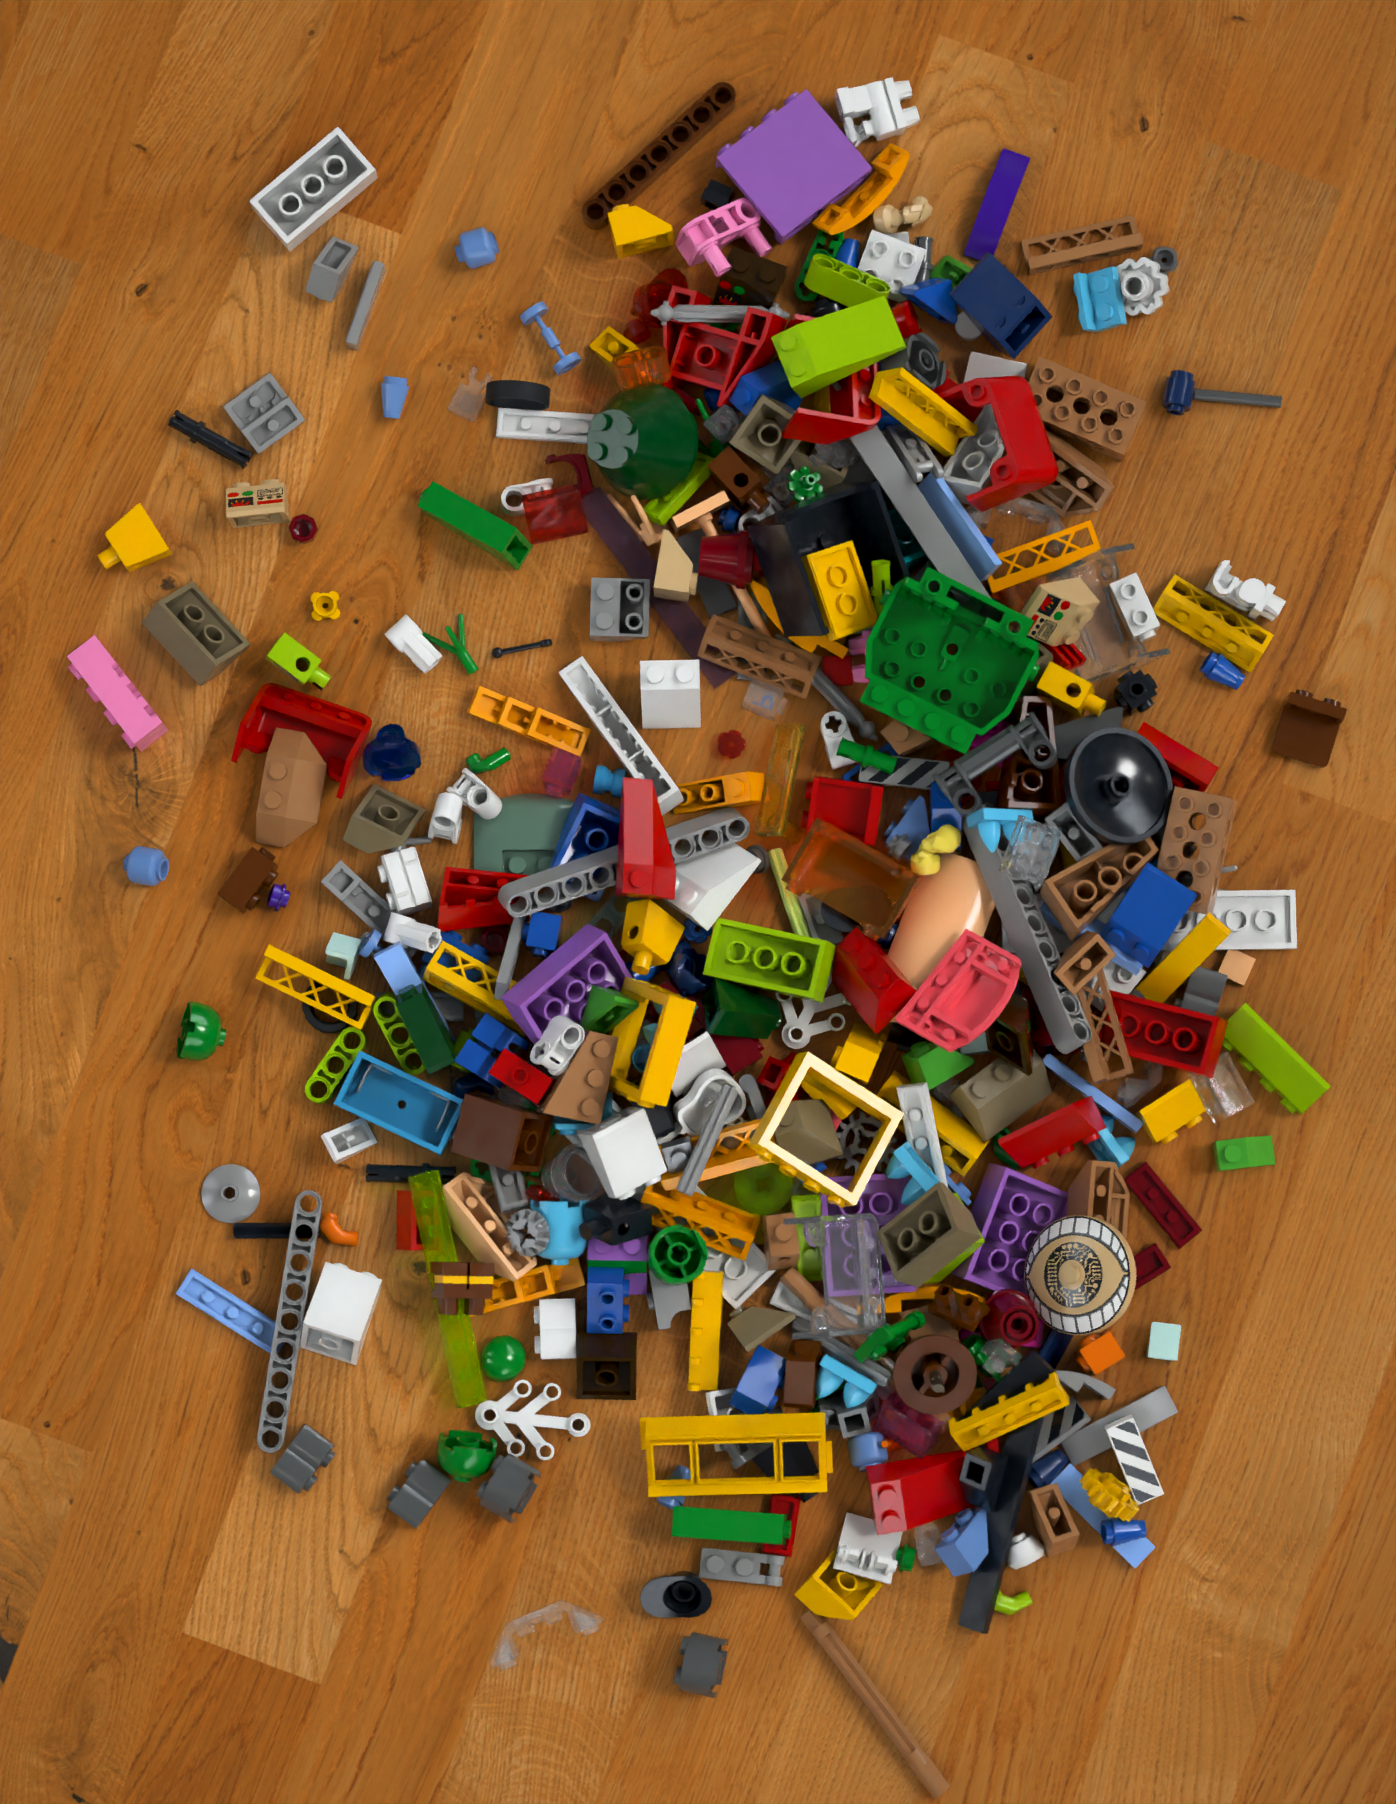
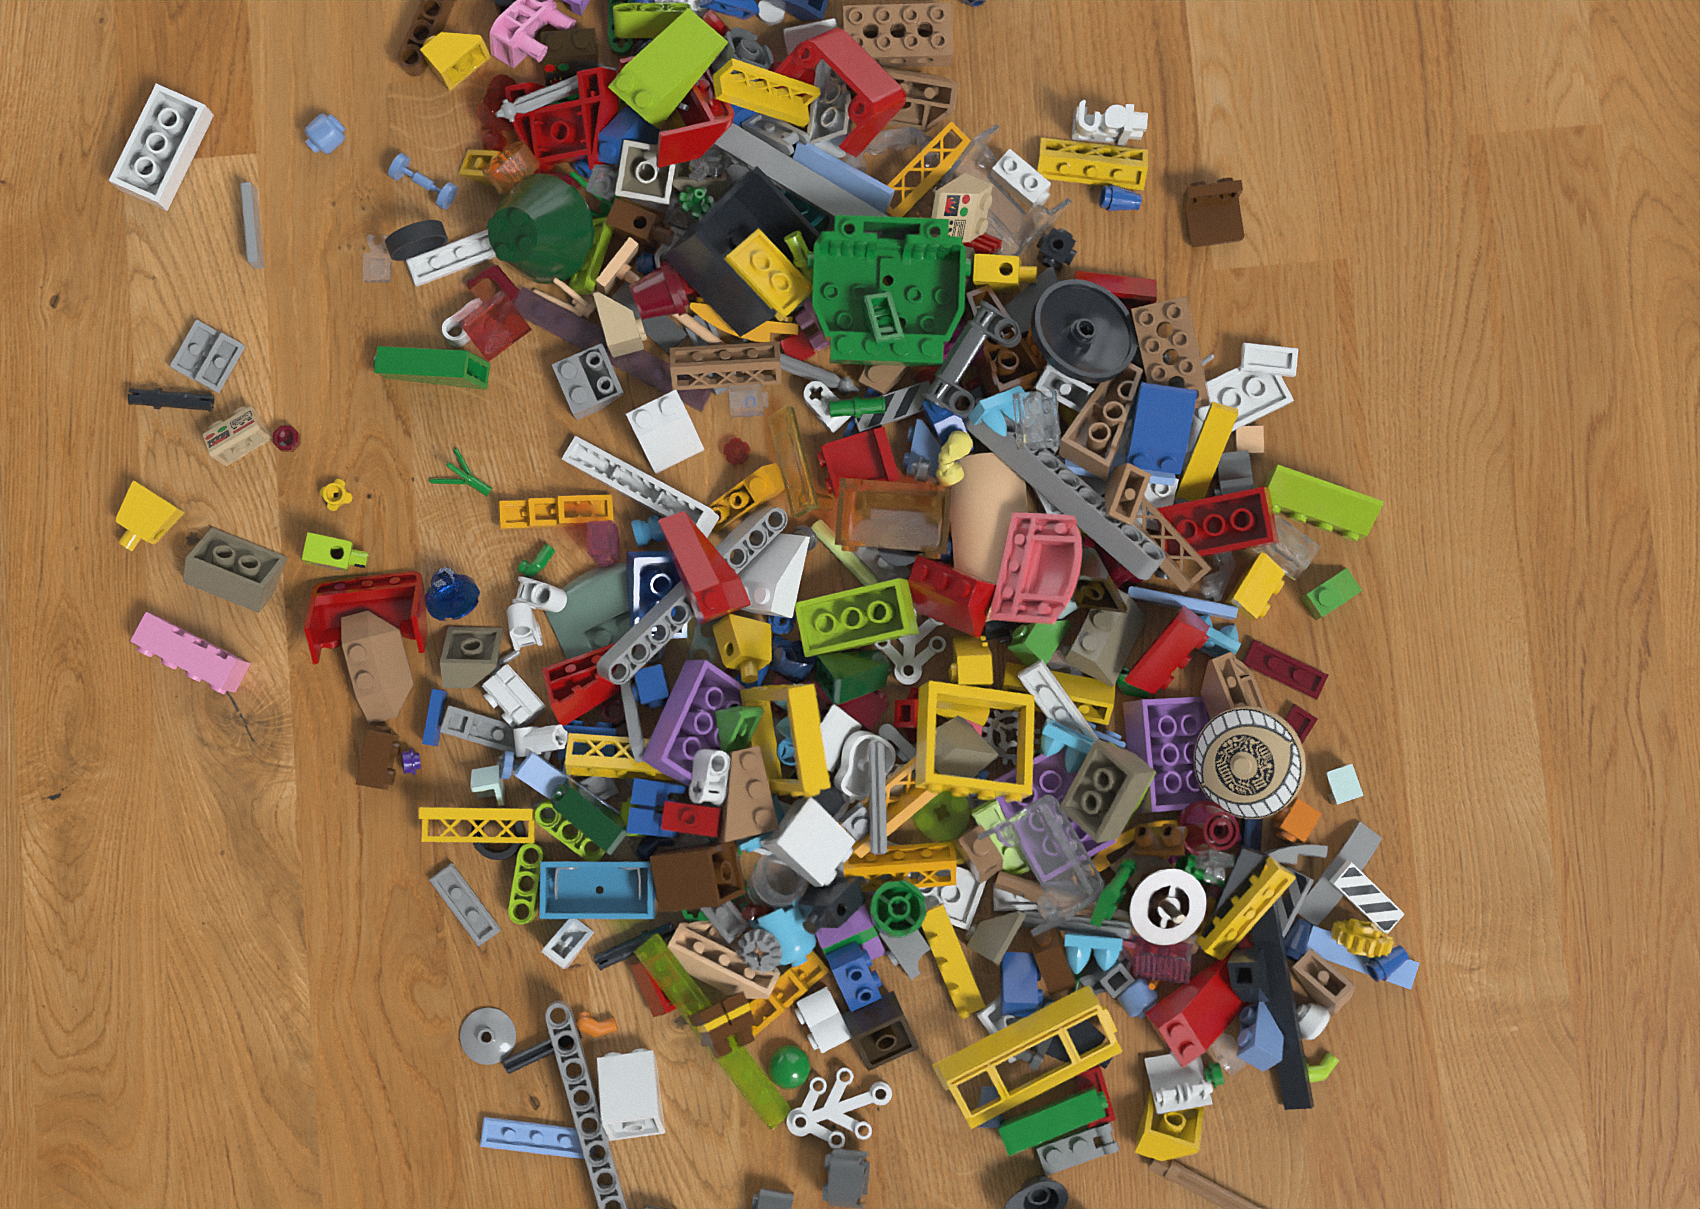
camera: 30 degrees left, 0 degrees up
(146, 866) = (283, 788): medium blue head -> none
(199, 1033) = (396, 911): green cylinder -> none
(267, 1058) = (465, 904): none -> light grey tile
(321, 865) = (434, 717): none -> blue tile
(331, 269) = (208, 209): light grey slope -> none
(393, 396) = (311, 289): medium blue cone -> none
(409, 639) = (420, 490): white piece -> none
(465, 1454) = (796, 1166): green cylinder -> none
(498, 652) = (502, 466): black hinge -> none
(934, 667) = (878, 302): none -> green slope
(1290, 897) = (1268, 360): none -> white tile

